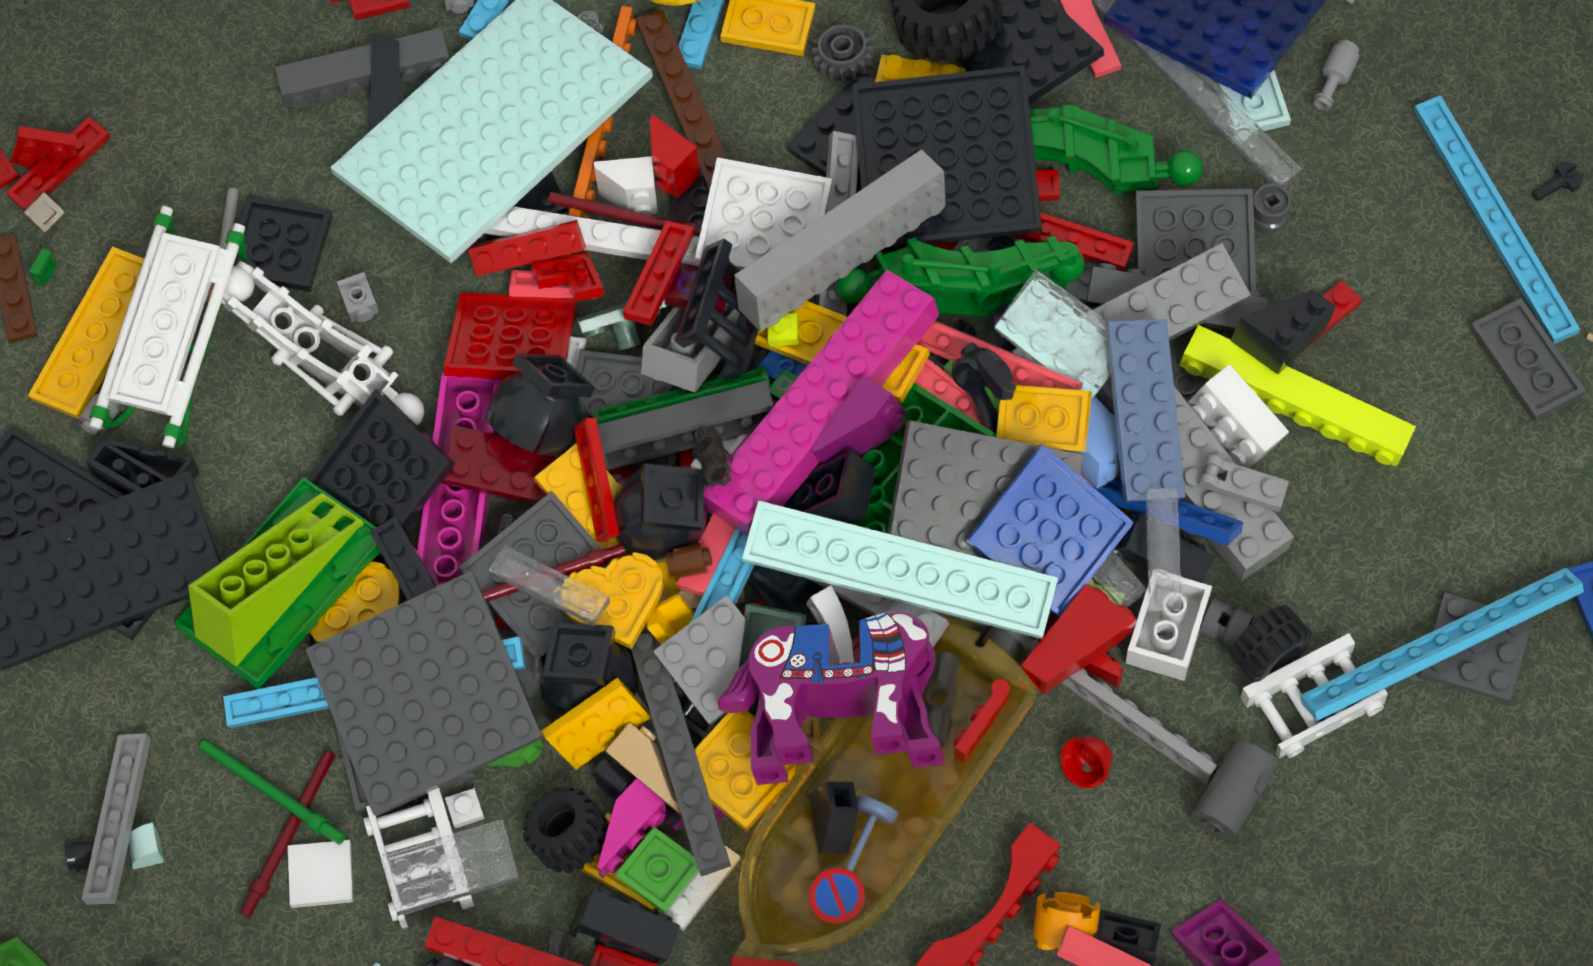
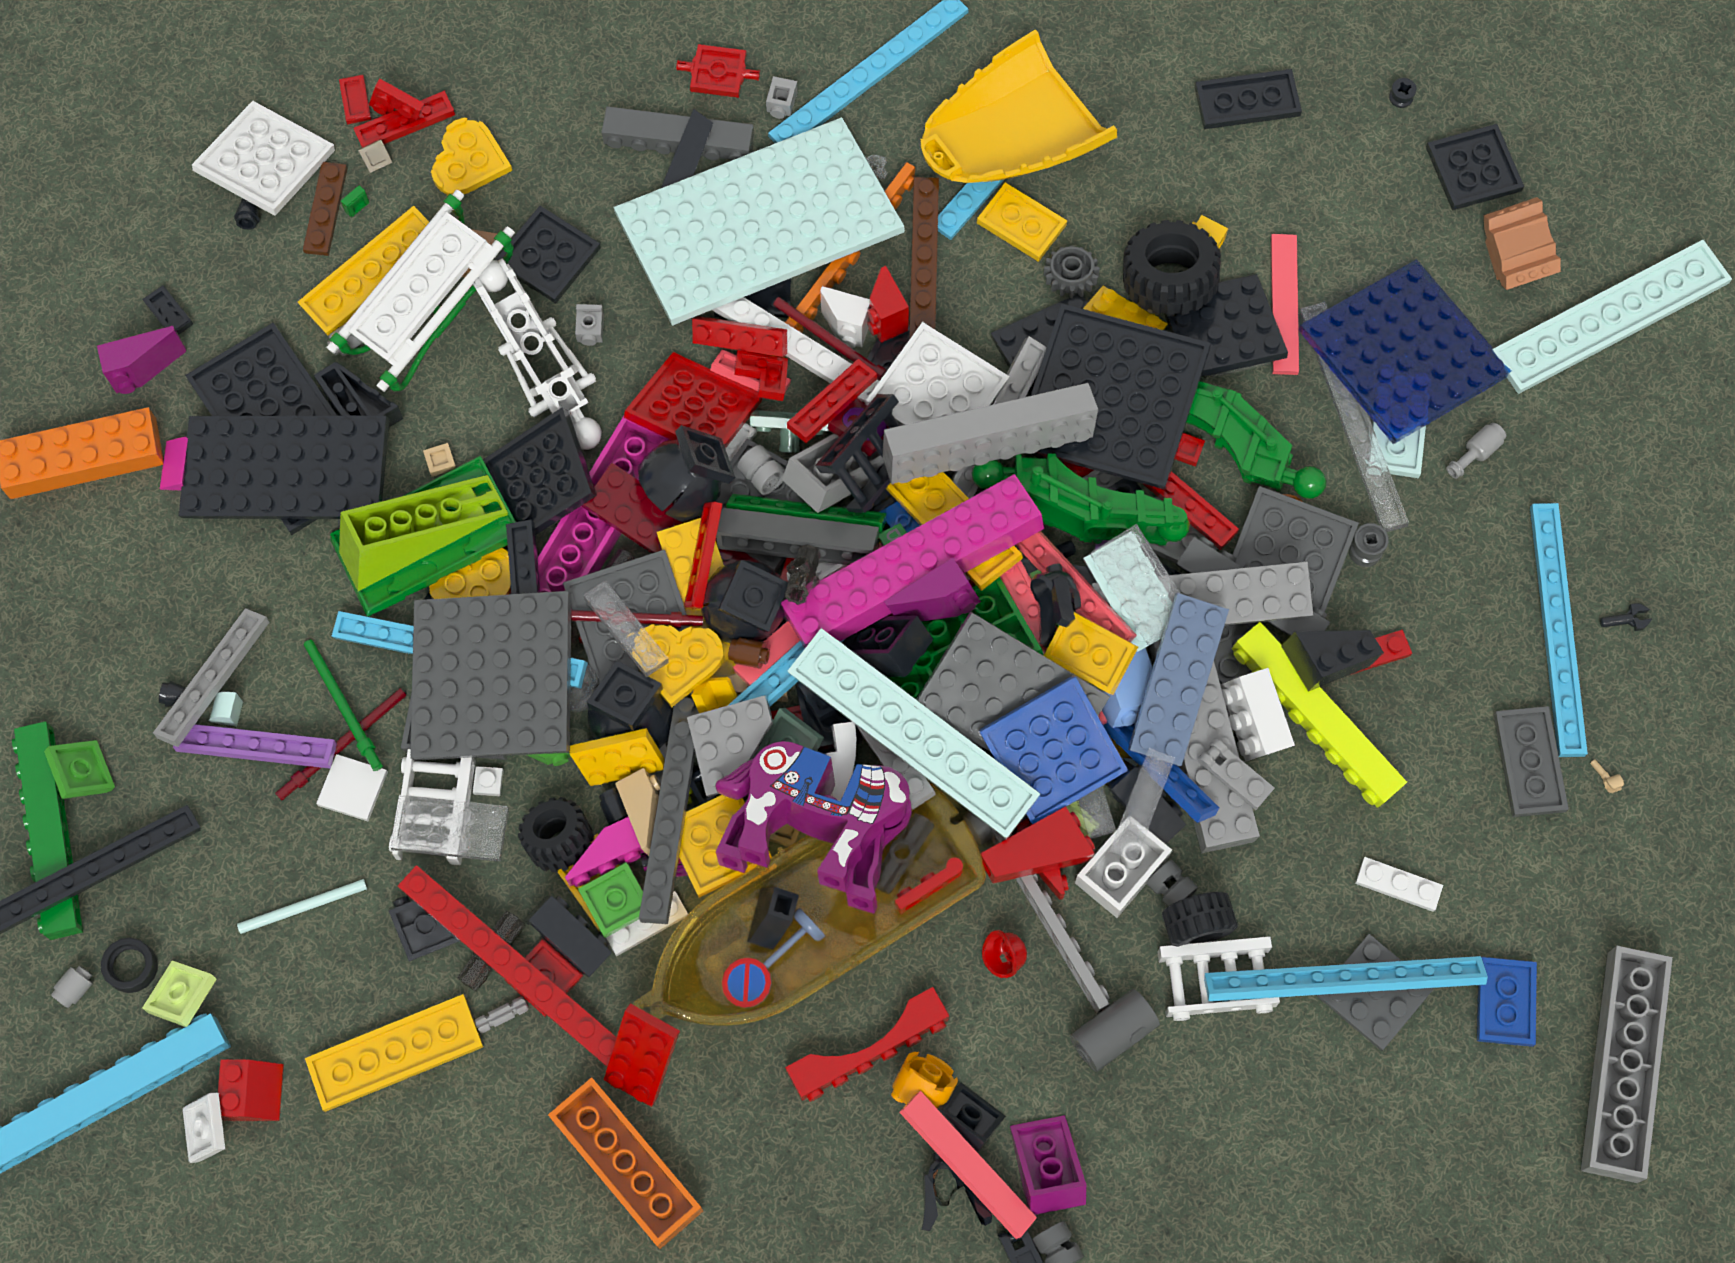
camera: 20 degrees right, 5 degrees up
(146, 177) = (468, 158): none -> yellow plate
(201, 869) = (259, 746): none -> medium lavender plate
(229, 215) = (521, 213): light grey bar -> none
(259, 499) = (439, 459): none -> tan plate
(614, 373) = (761, 469): none -> light grey wheel
(785, 331) = (913, 491): neon yellow plate -> none
(1452, 532) = (1399, 884): none -> white plate

